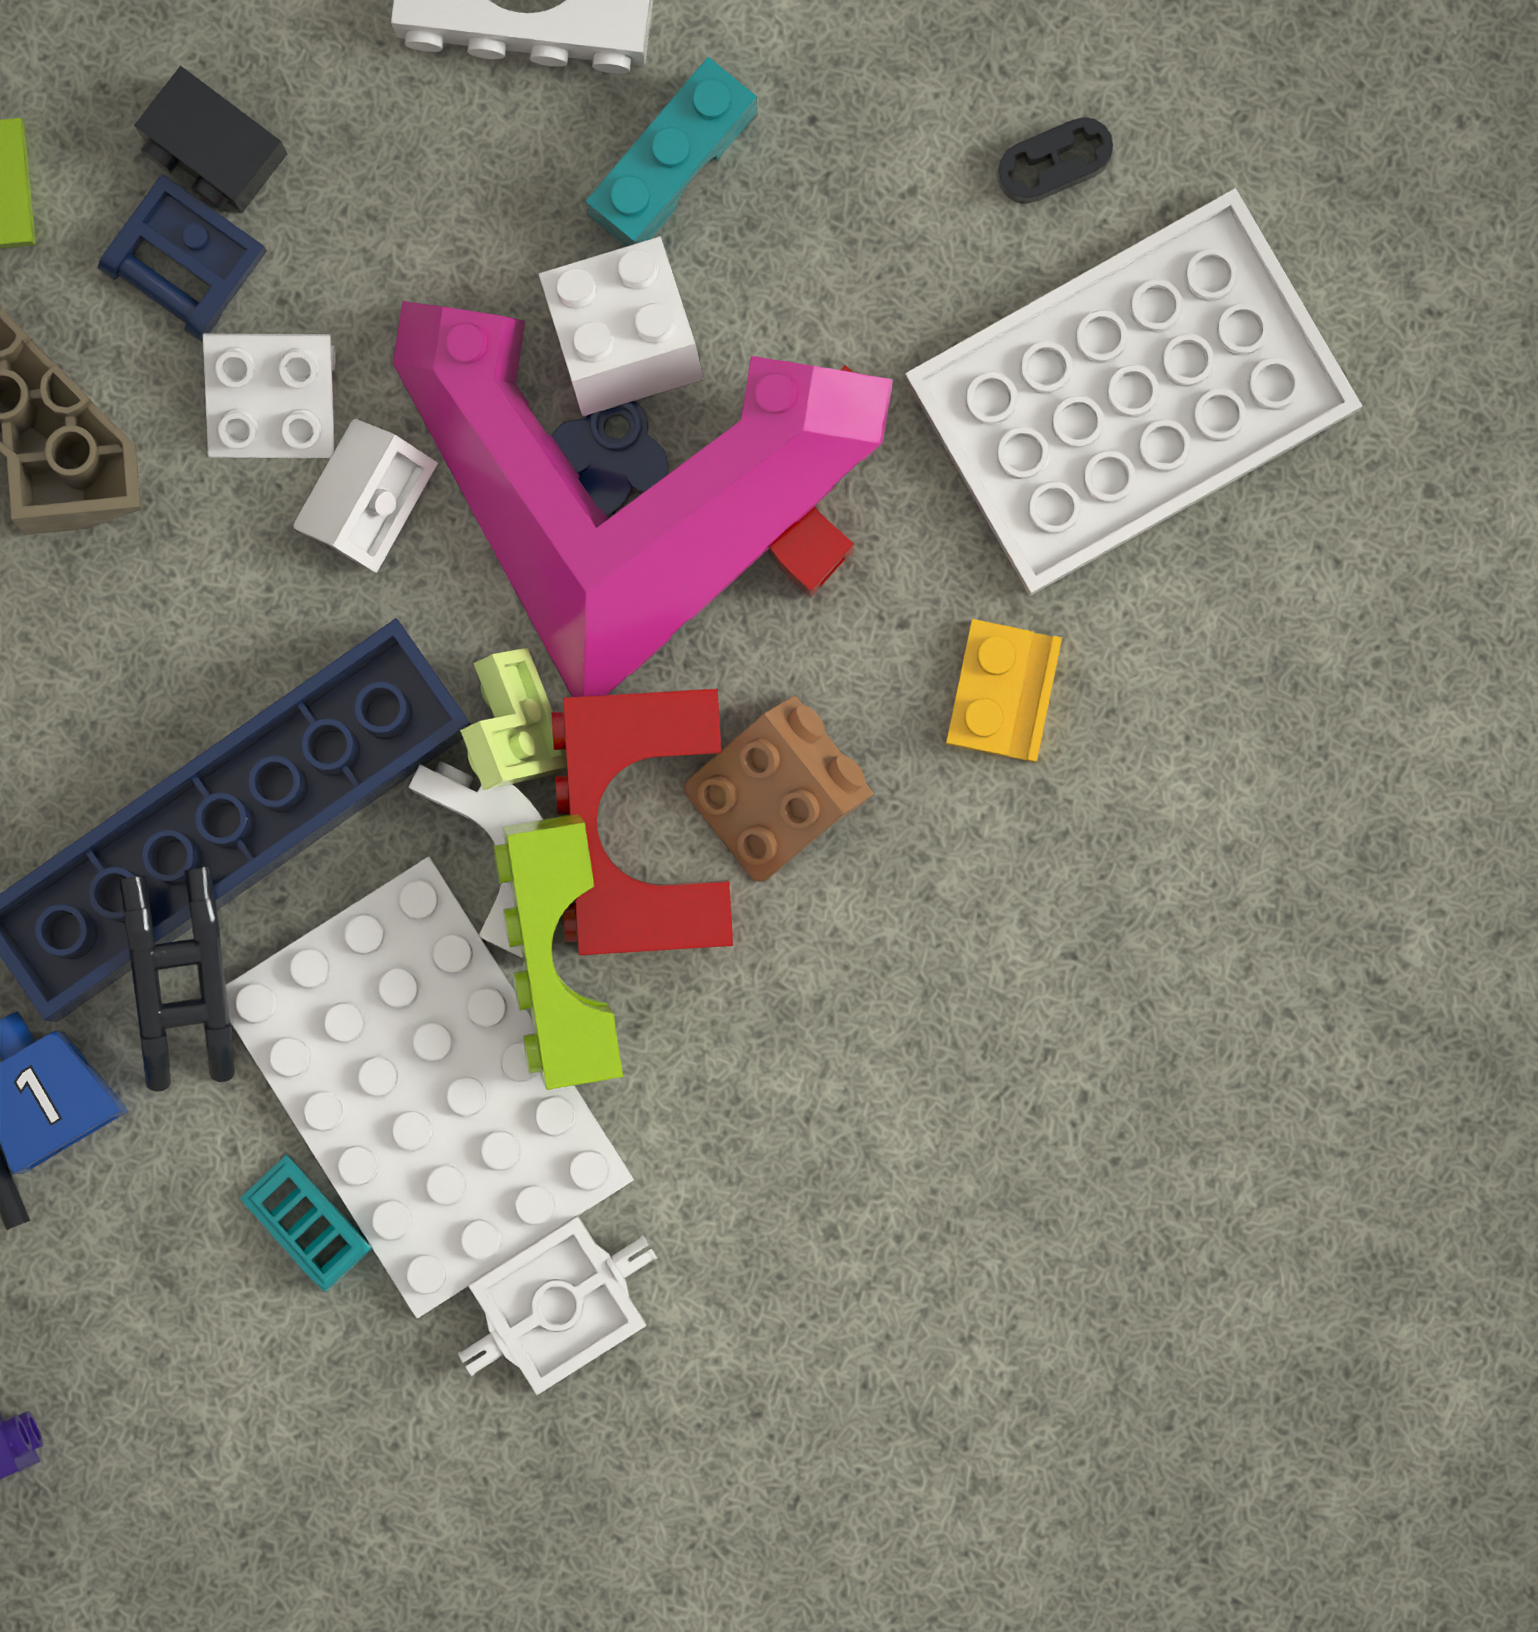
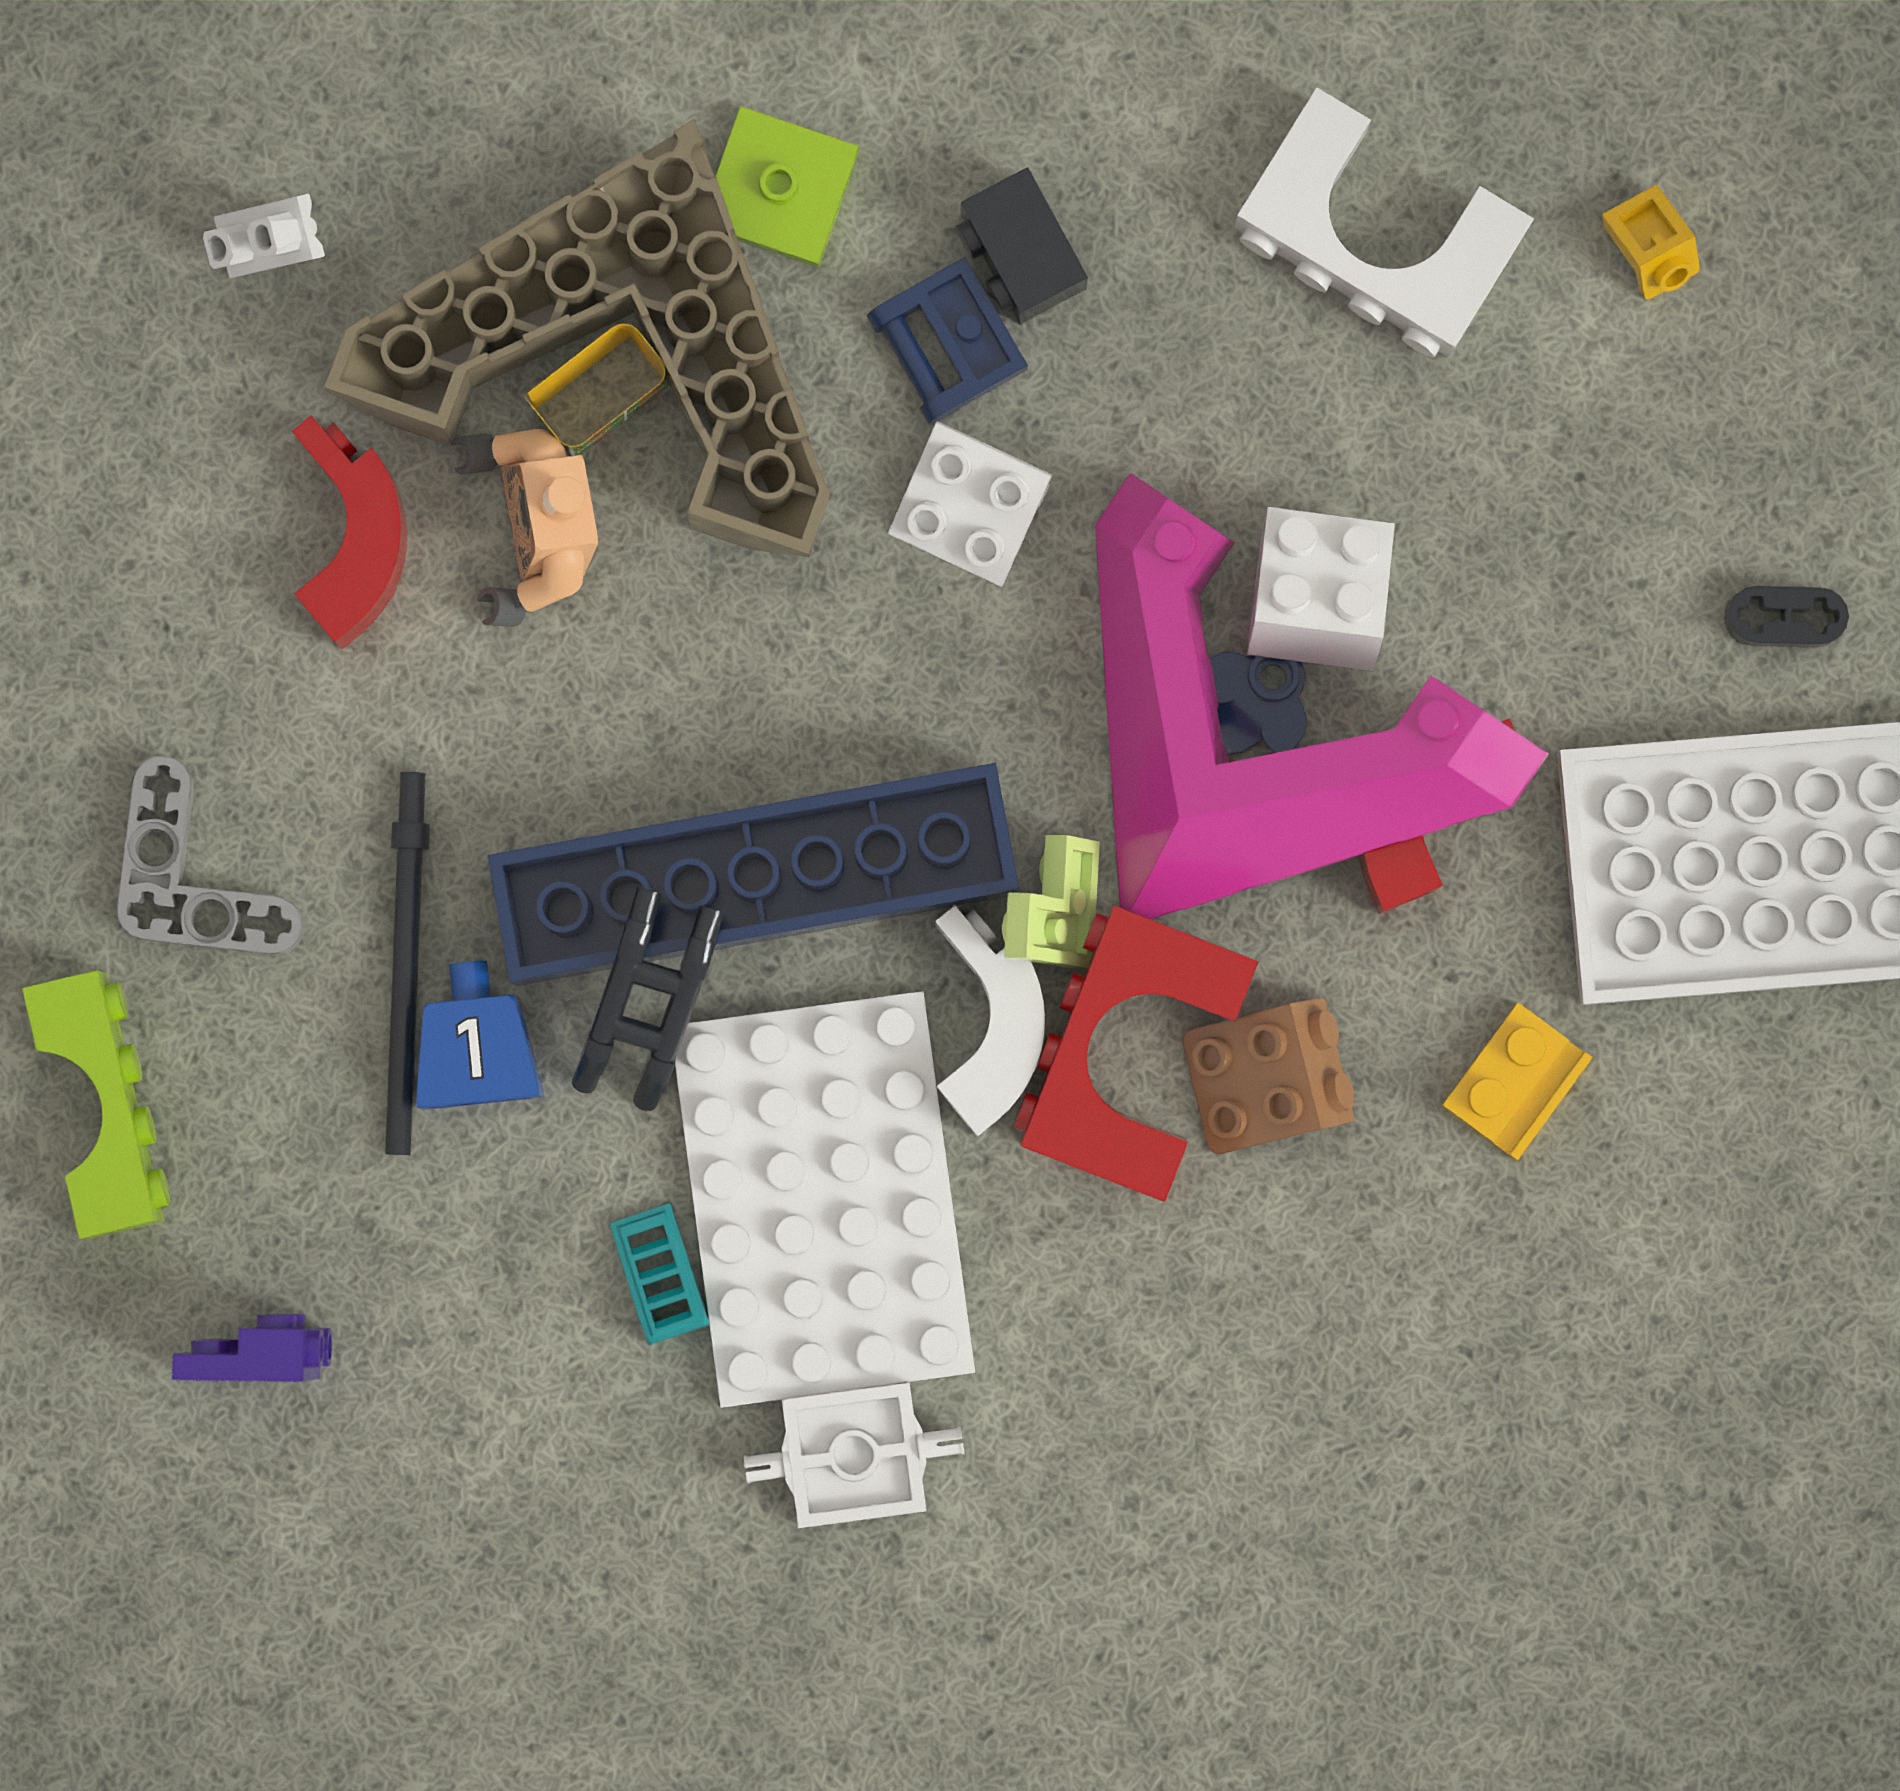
camera: 20 degrees right, 0 degrees up
(365, 494) = (1016, 633): white panel -> none
(547, 871) = (1028, 1058): lime arch -> none
(670, 152) = (1437, 452): teal arch -> none

